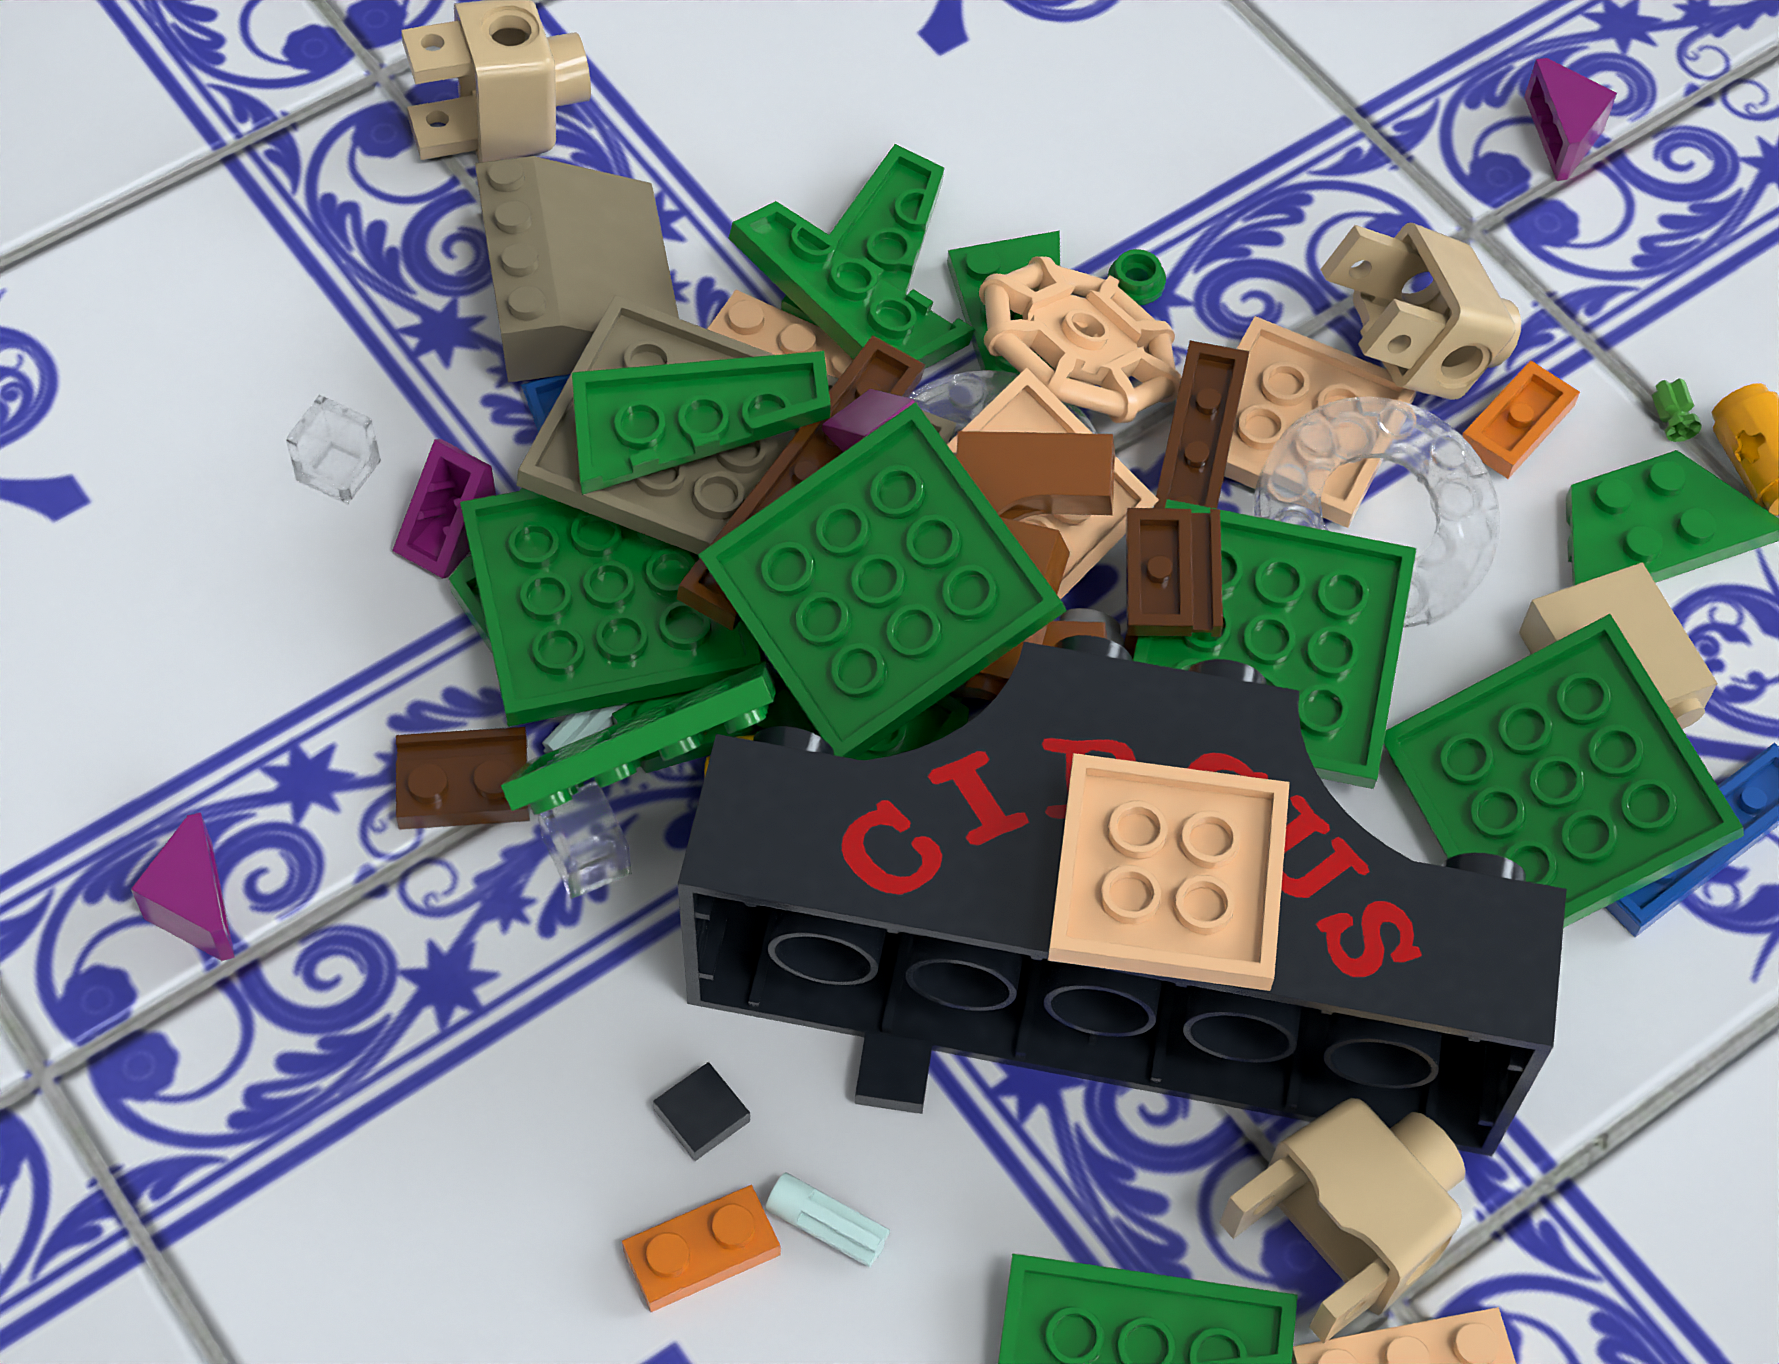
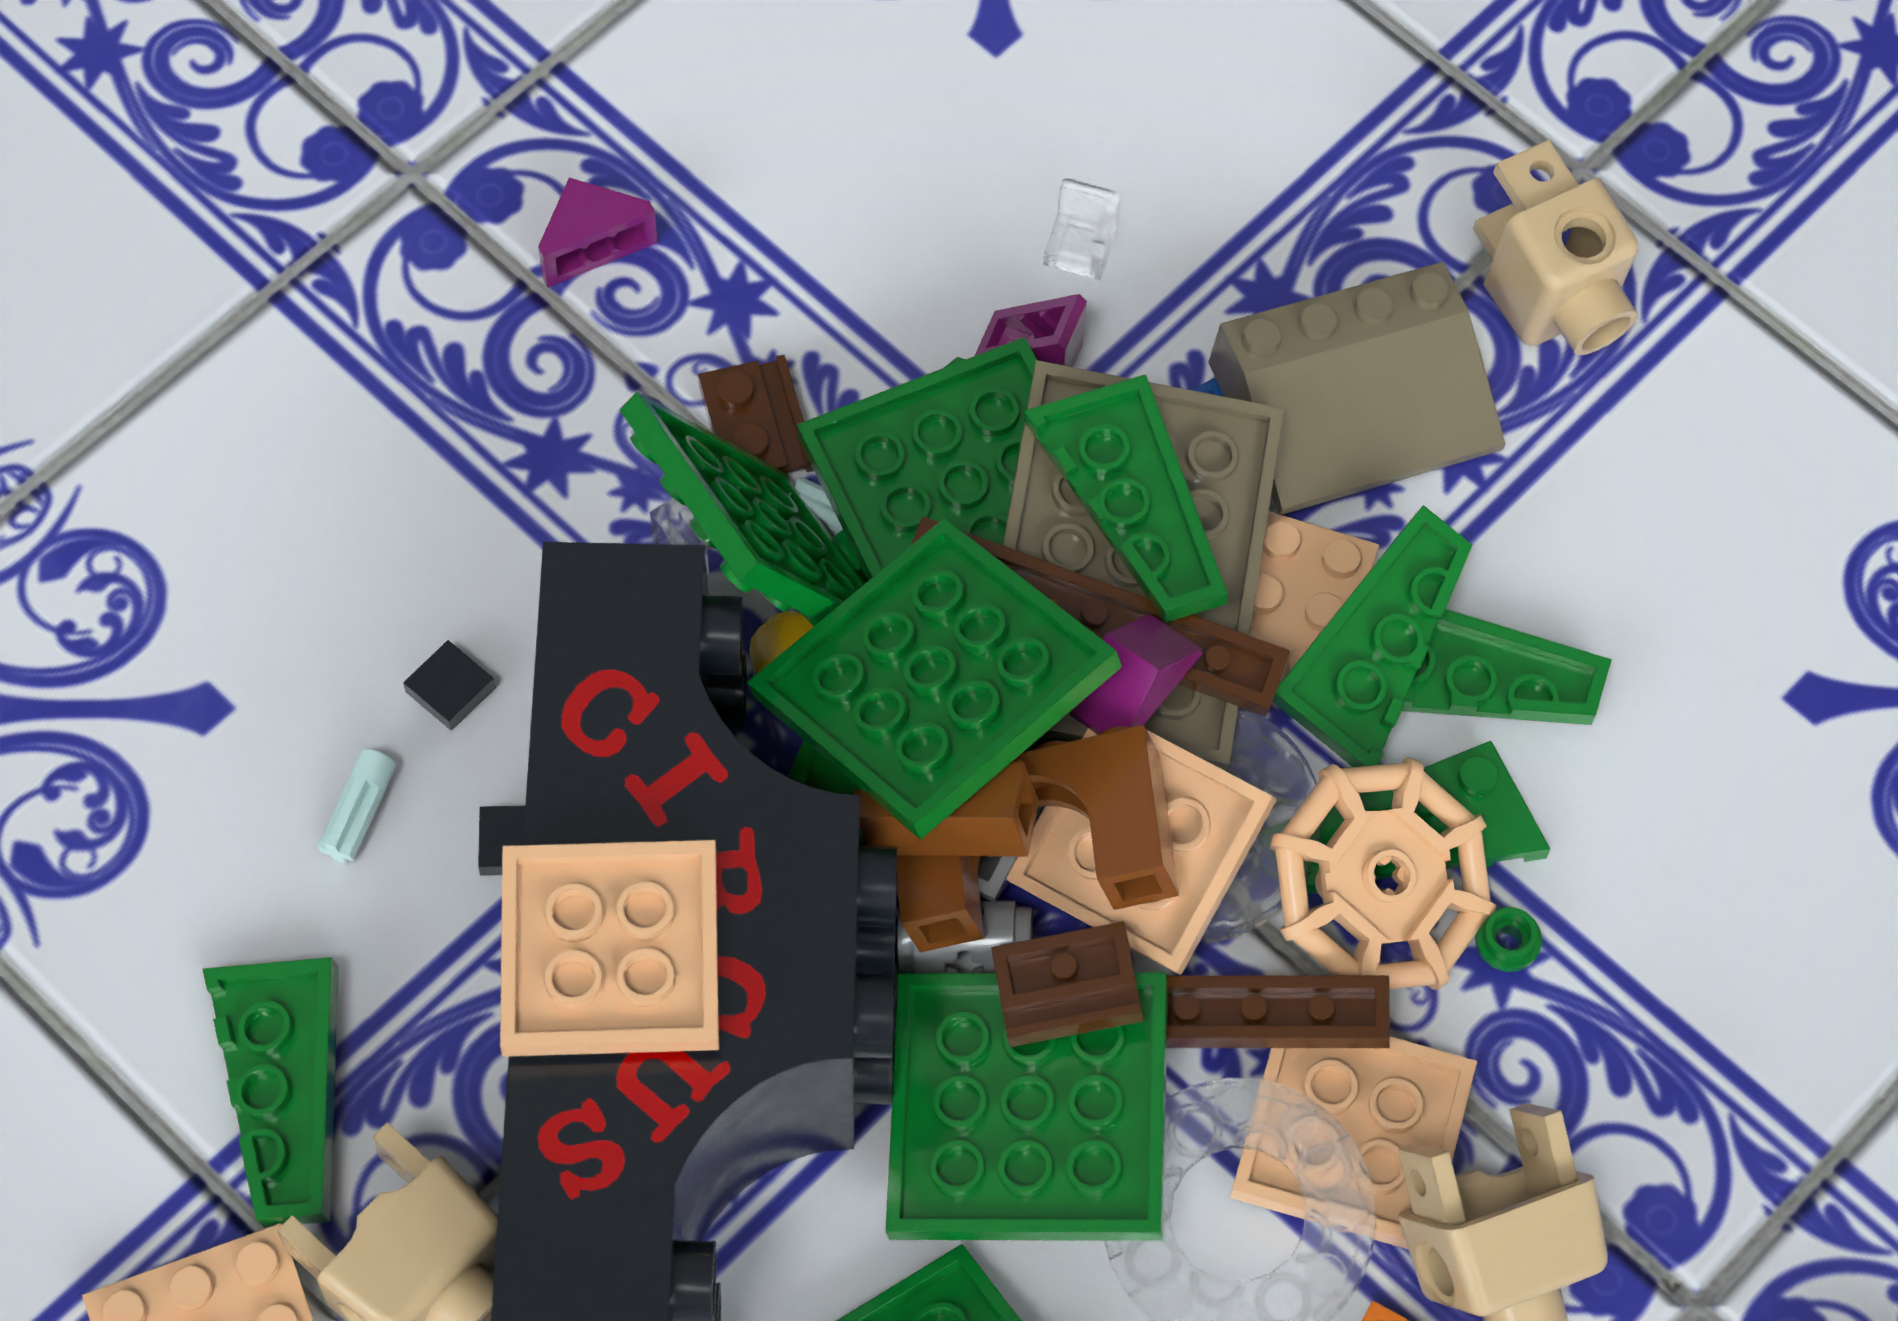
camera: 80 degrees right, 5 degrees up
(701, 1248) = (318, 709): orange plate -> none

